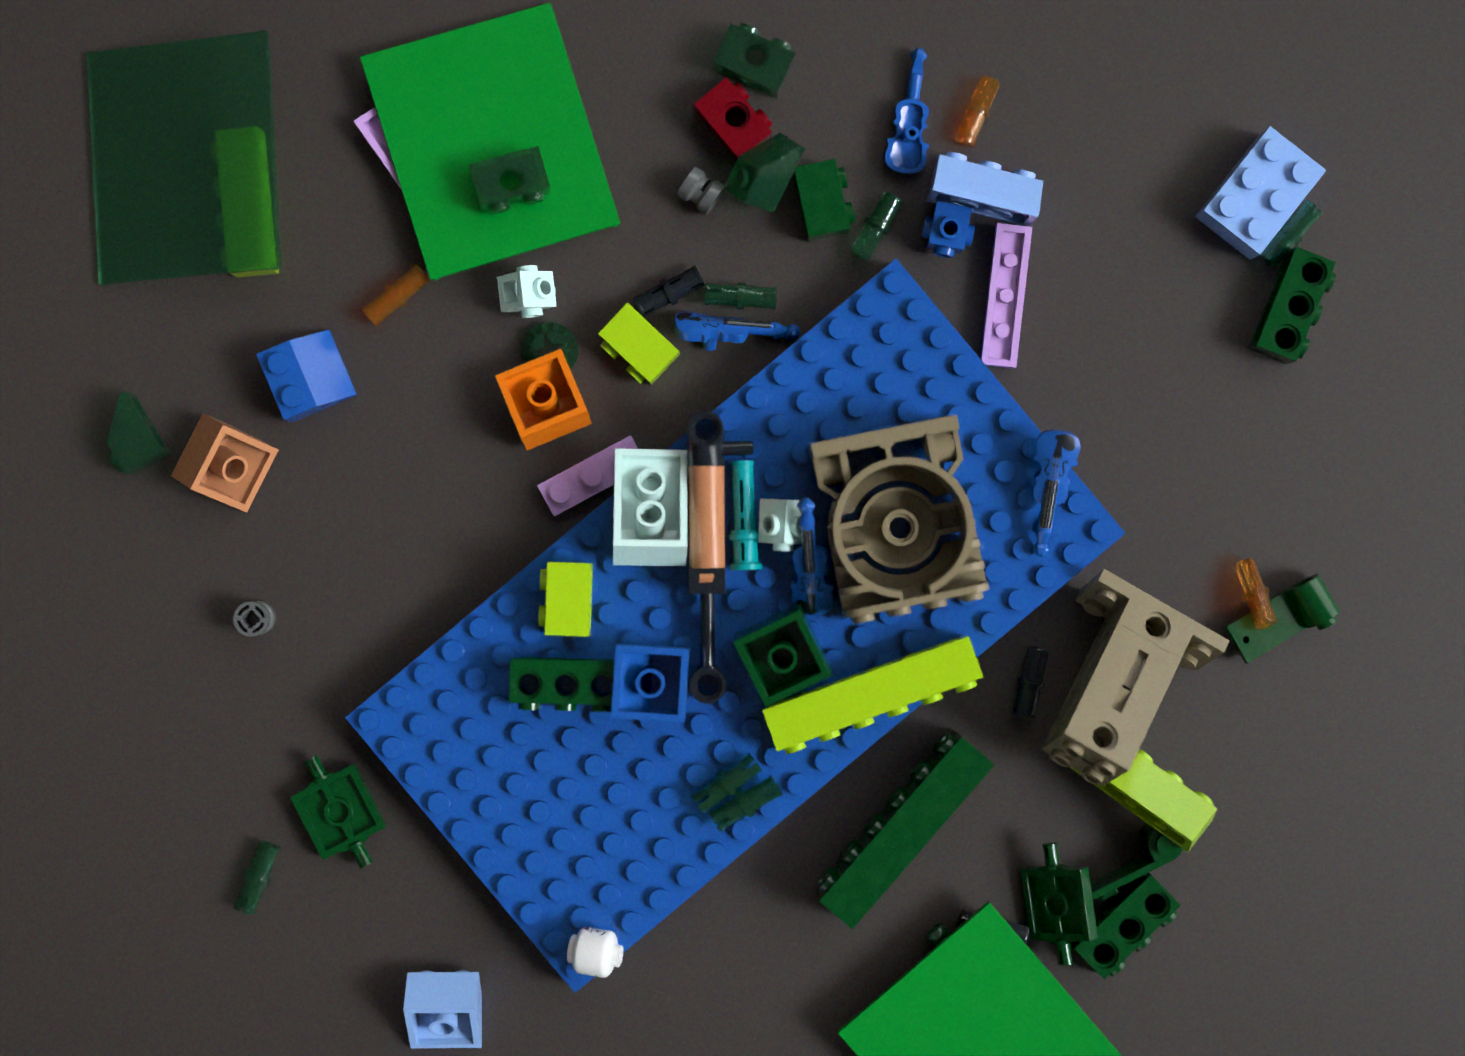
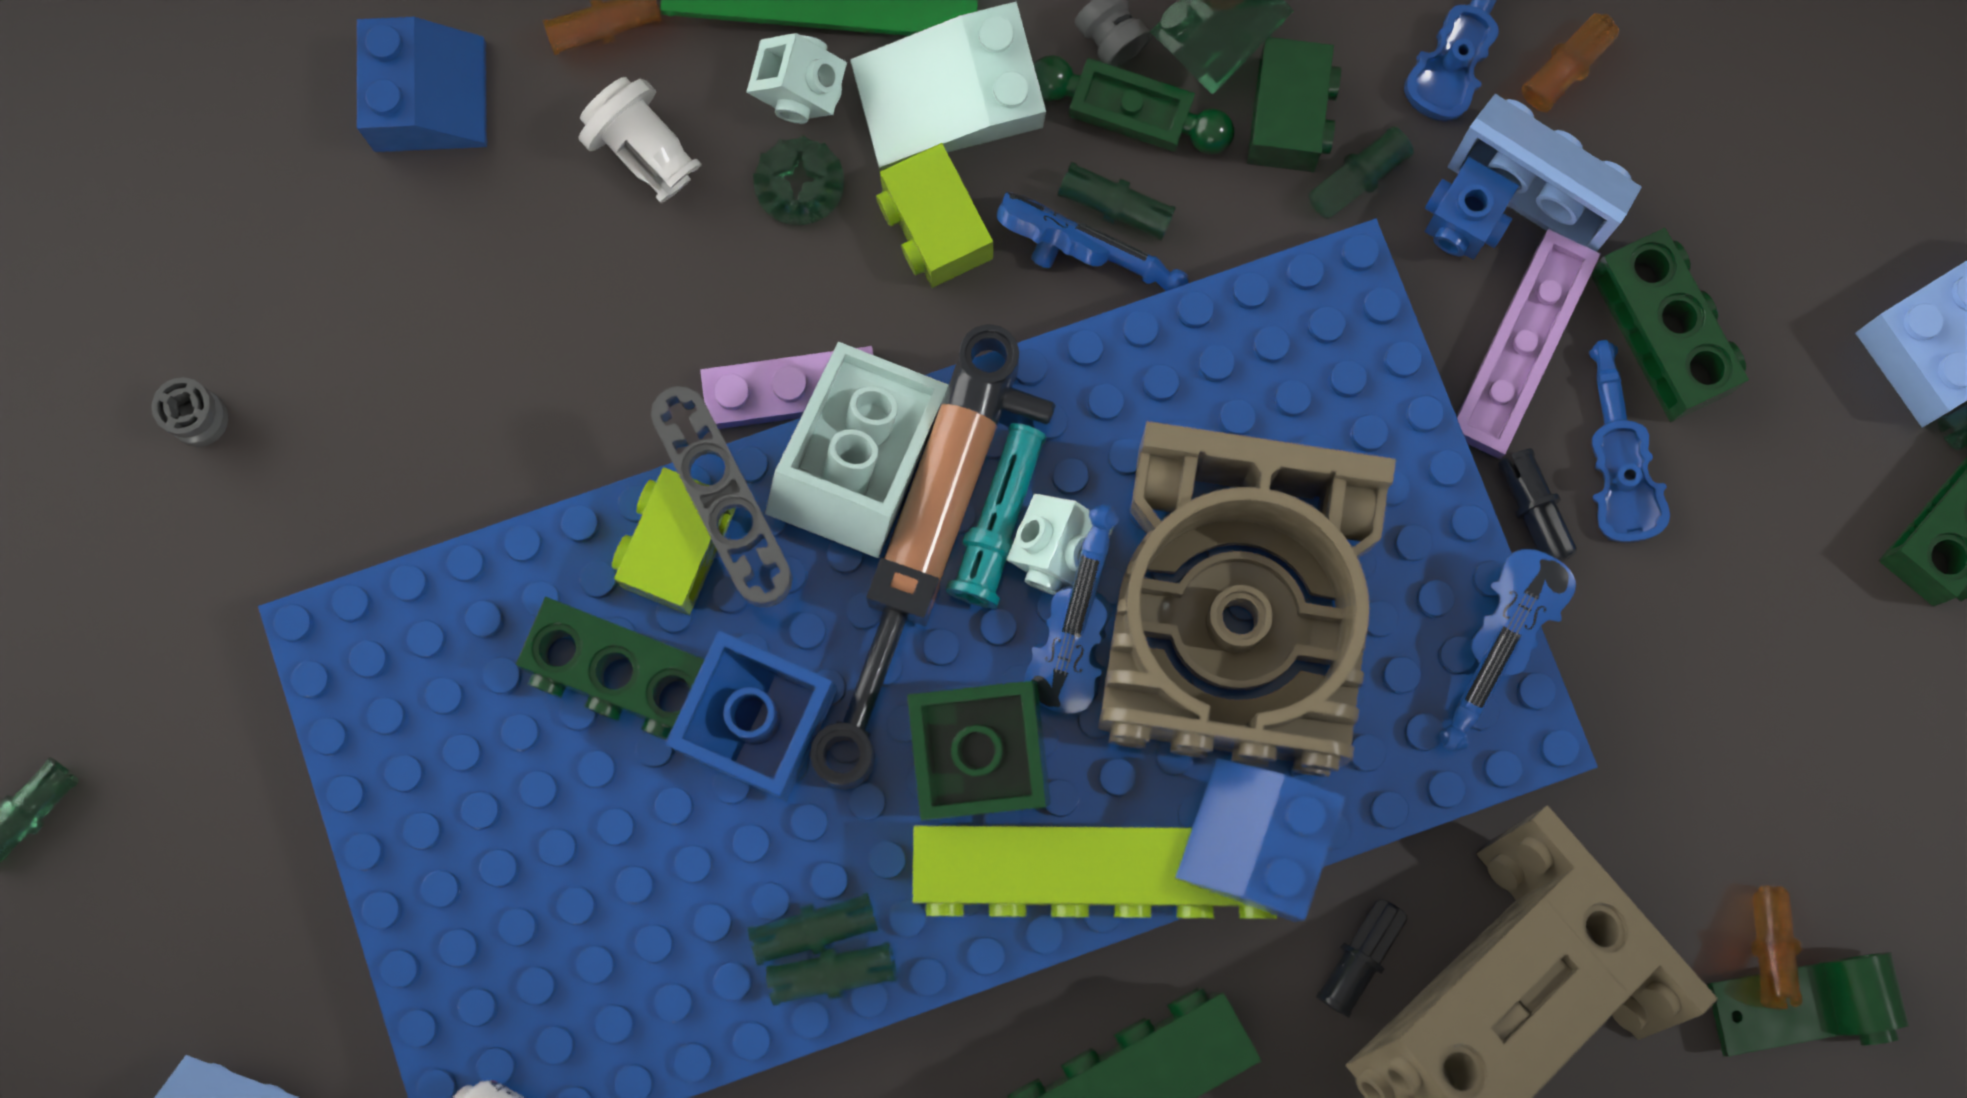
camera: 15 degrees right, 10 degrees down
(134, 437) = (130, 83): clear green slope -> none
(224, 463) = (246, 168): nougat slope -> none
(338, 811) = (190, 757): dark green plate -> none
(448, 361) = (637, 136): none -> white piece
(543, 399) = (759, 243): orange slope -> none
(584, 572) = (717, 498): none -> dark grey beam
(617, 264) = (950, 86): none -> light aqua slope
(669, 291) = (1011, 157): black pin -> none
(728, 233) = (1133, 105): none -> dark green plate
(953, 650) = (1261, 838): none -> blue slope
(1045, 390) = (1537, 505): none -> black axle
(1087, 274) = (1660, 352): none -> dark green brick
(1096, 367) = (1631, 503): none -> blue piece

